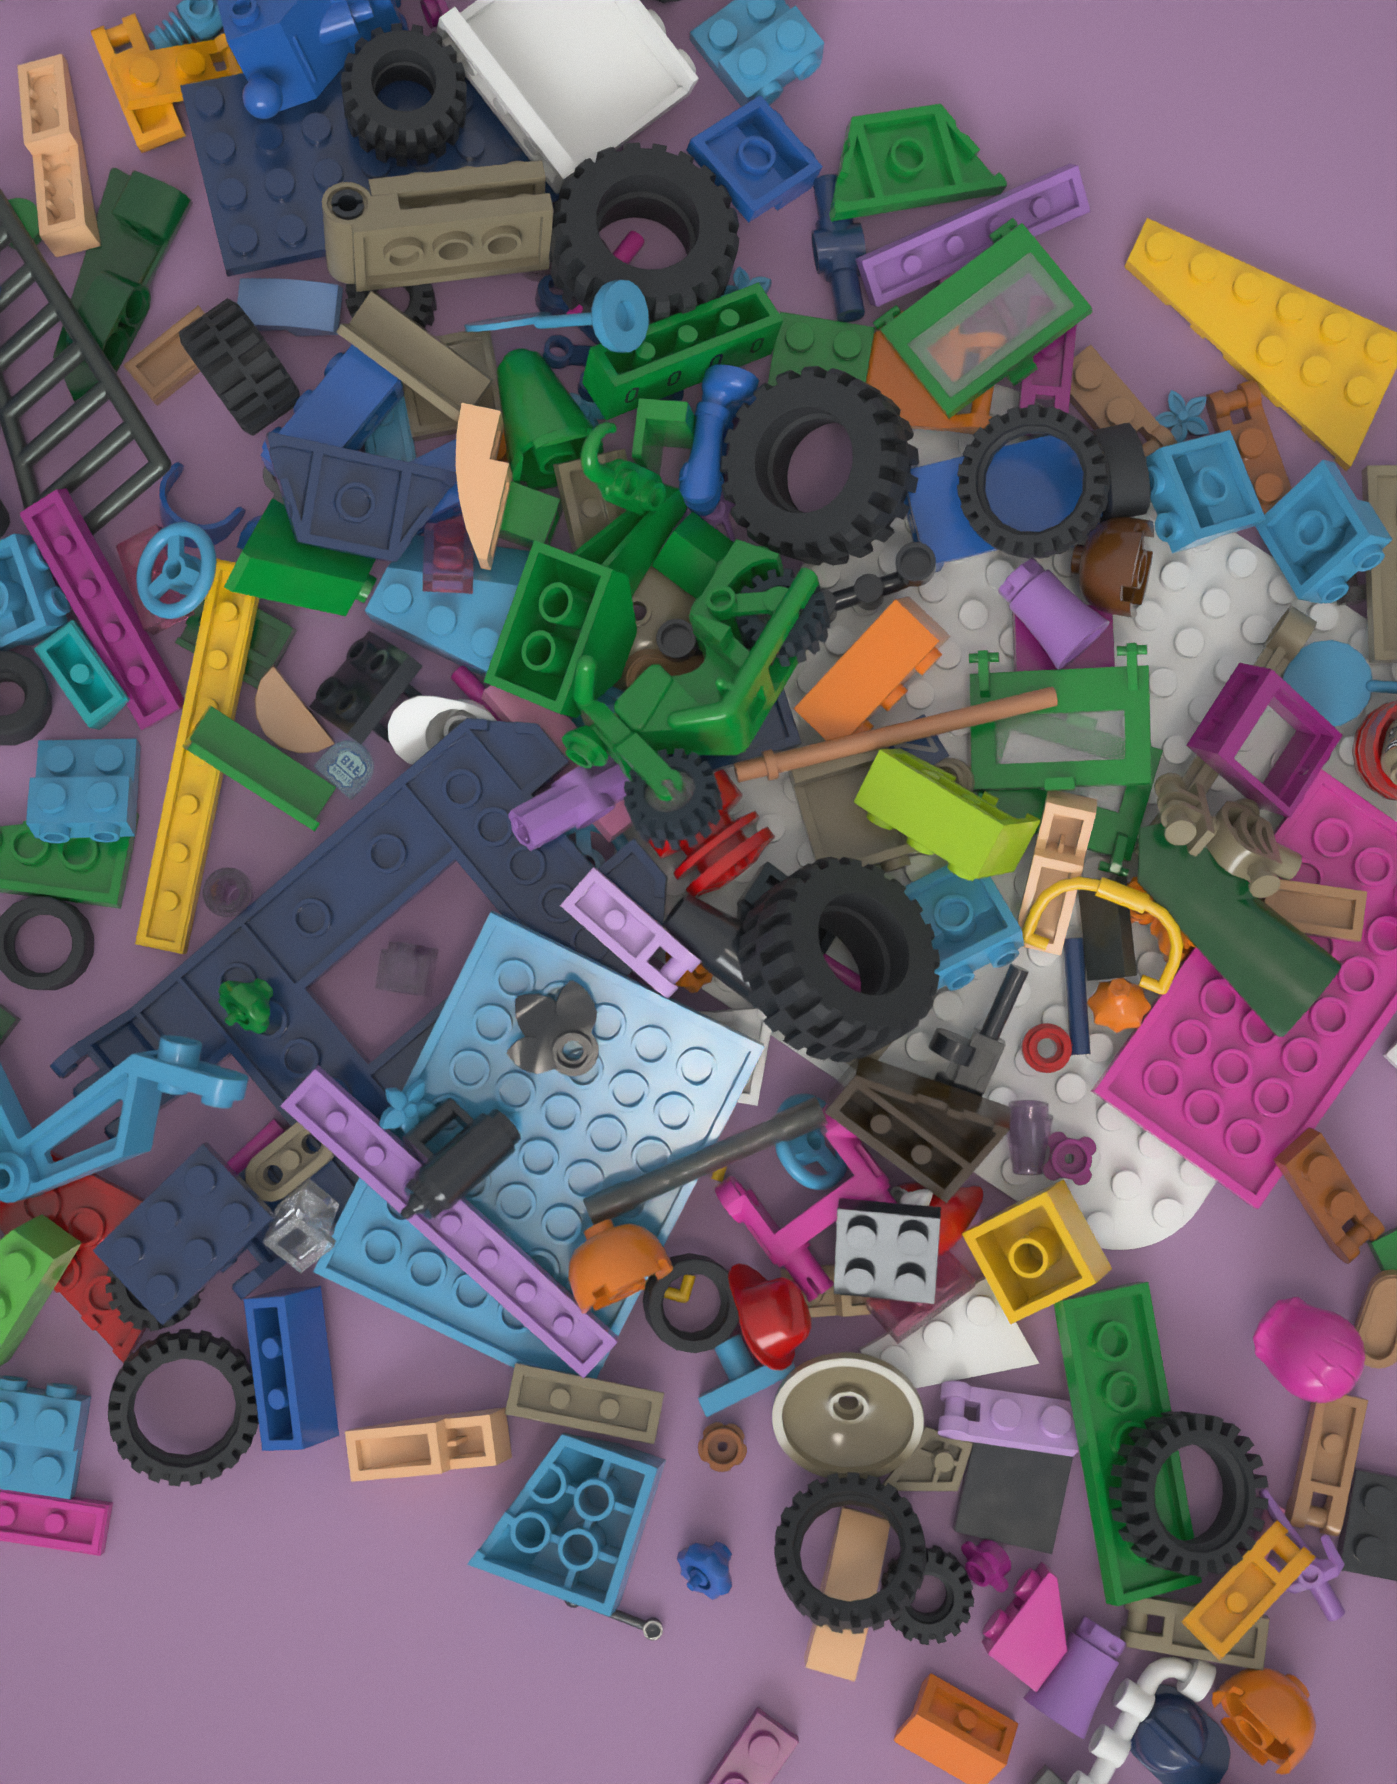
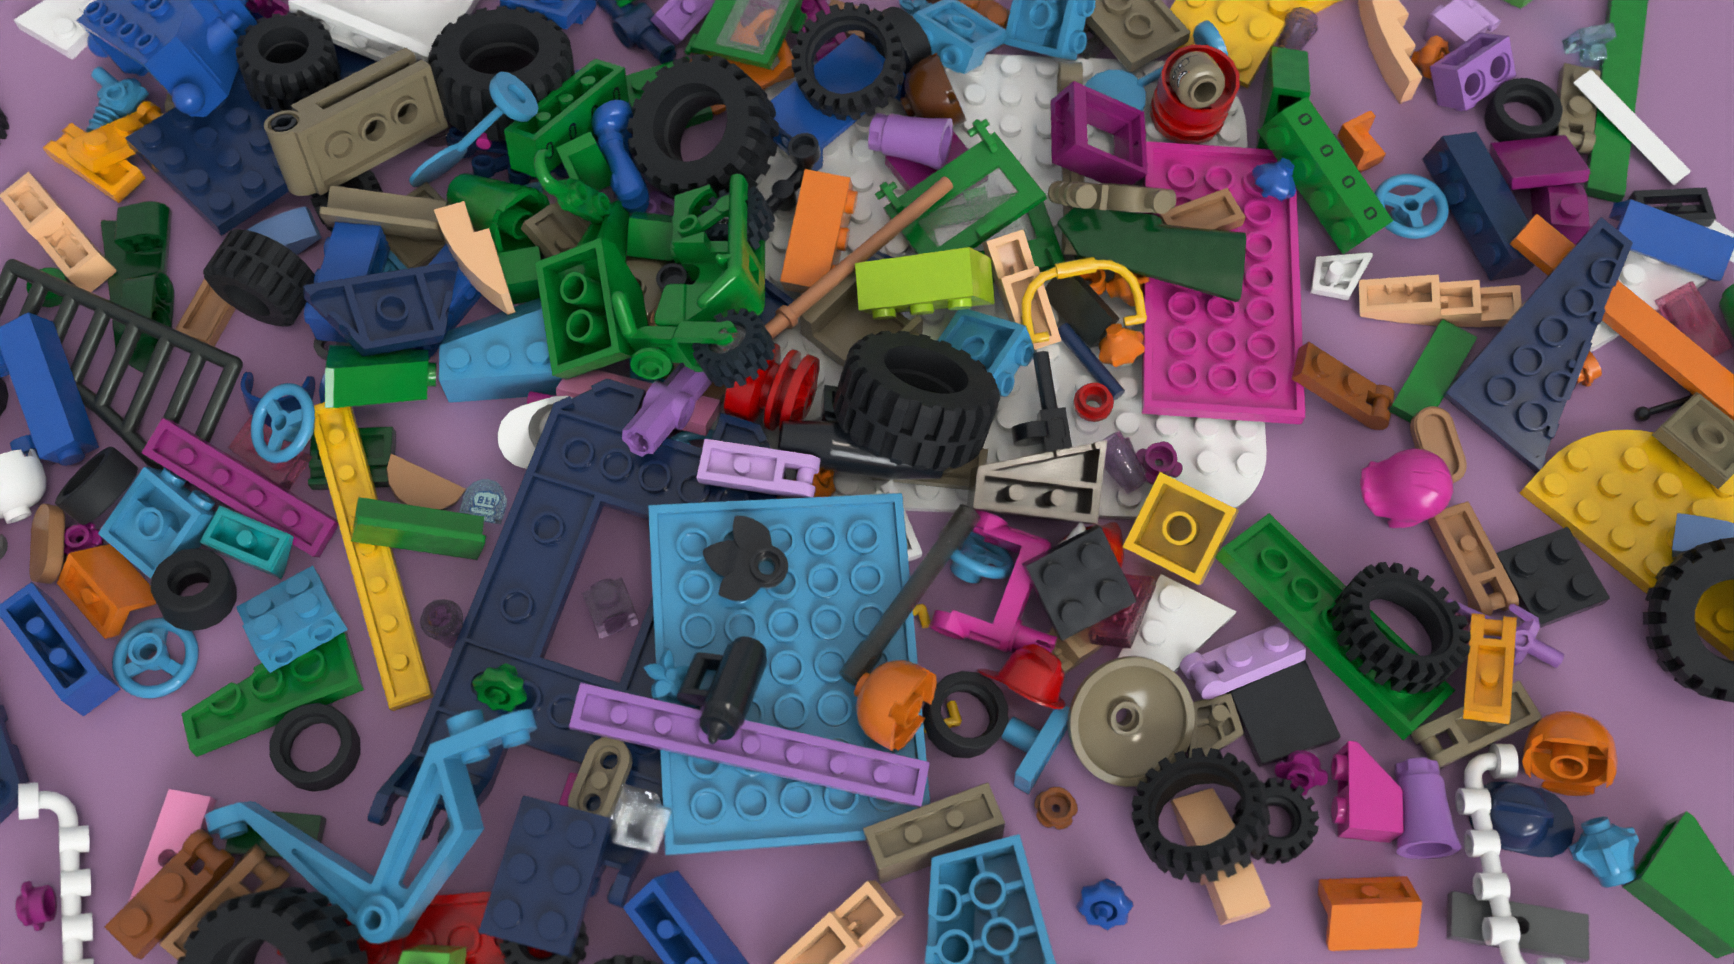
camera: 30 degrees left, 20 degrees down
(366, 687) = (469, 434): black plate -> none
(447, 558) = (479, 318): clear pink plate -> none

